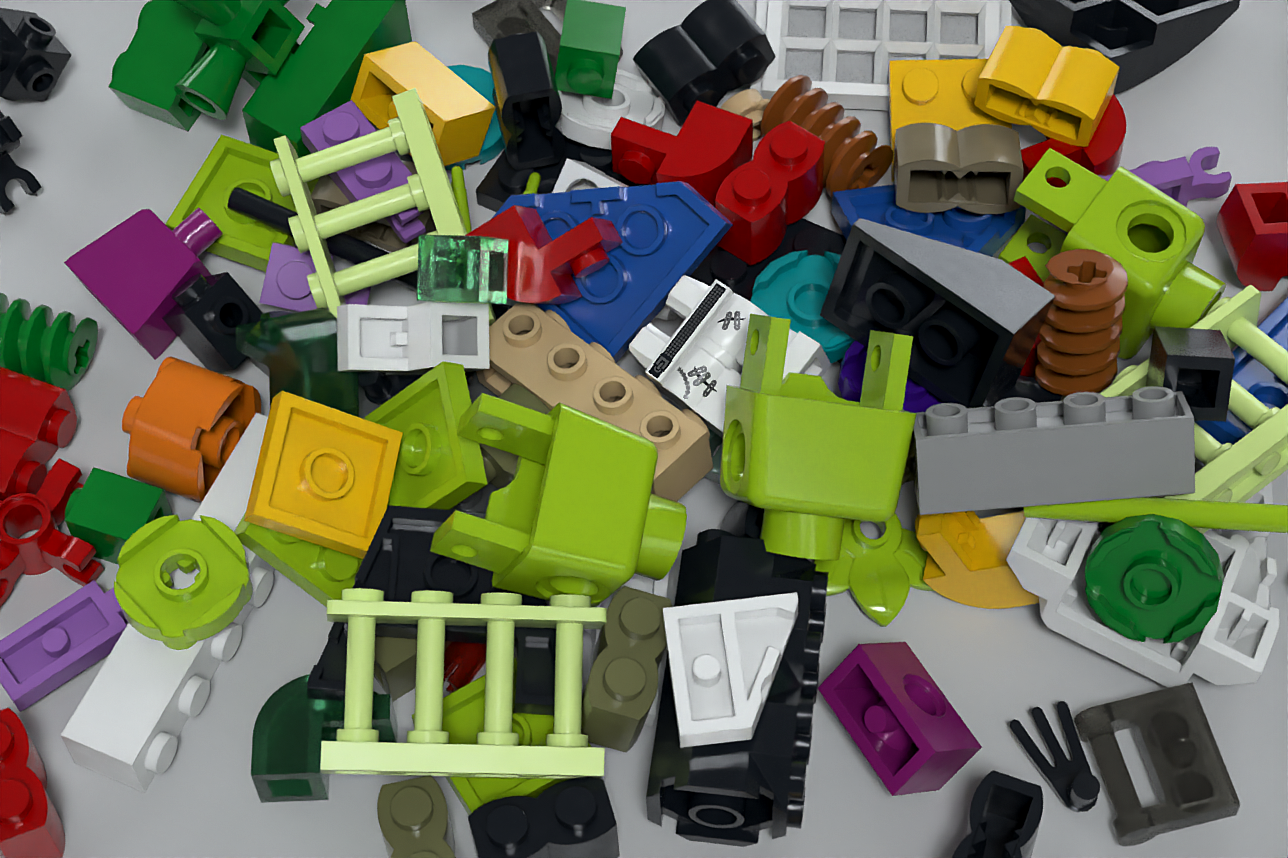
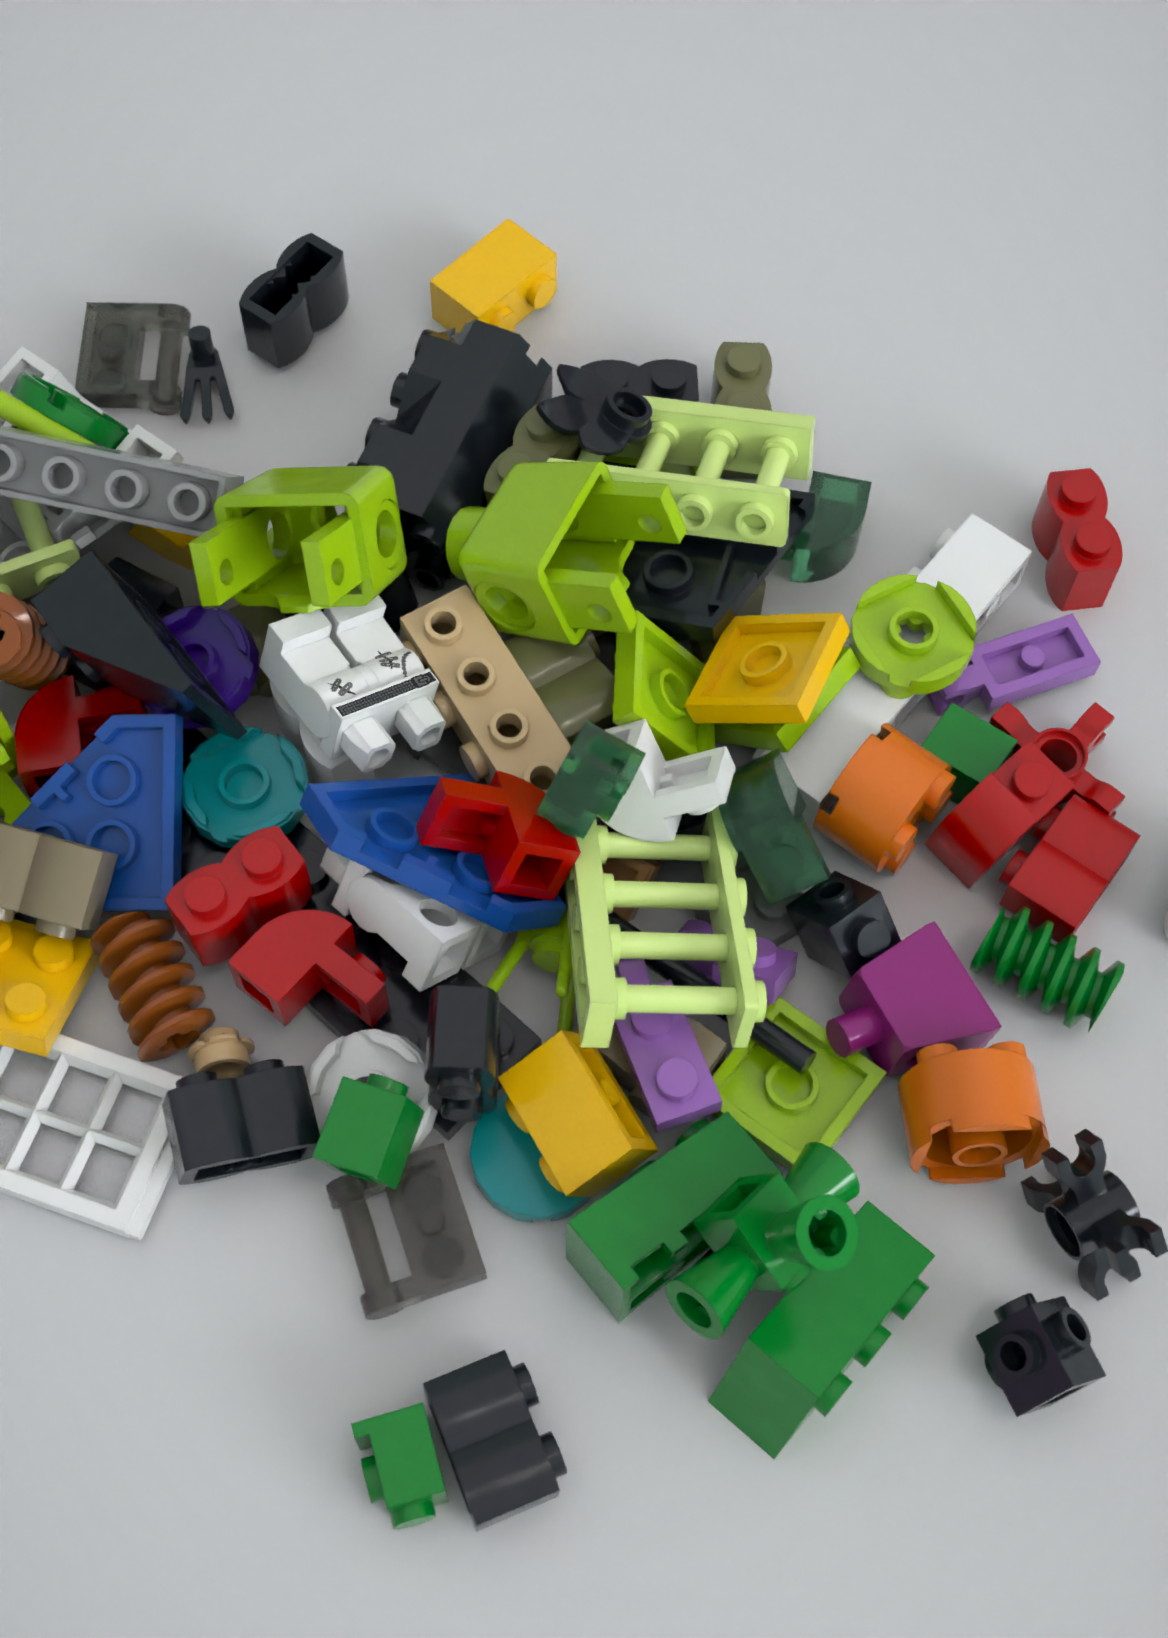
camera: 170 degrees left, 5 degrees up
(75, 440) = (998, 814): none -> red brick
(81, 188) = (972, 1112): none -> orange brick
(580, 693) = (596, 412): none -> black plate
(725, 663) = (458, 391): white wing -> none
(899, 718) = (320, 406): magenta brick -> none

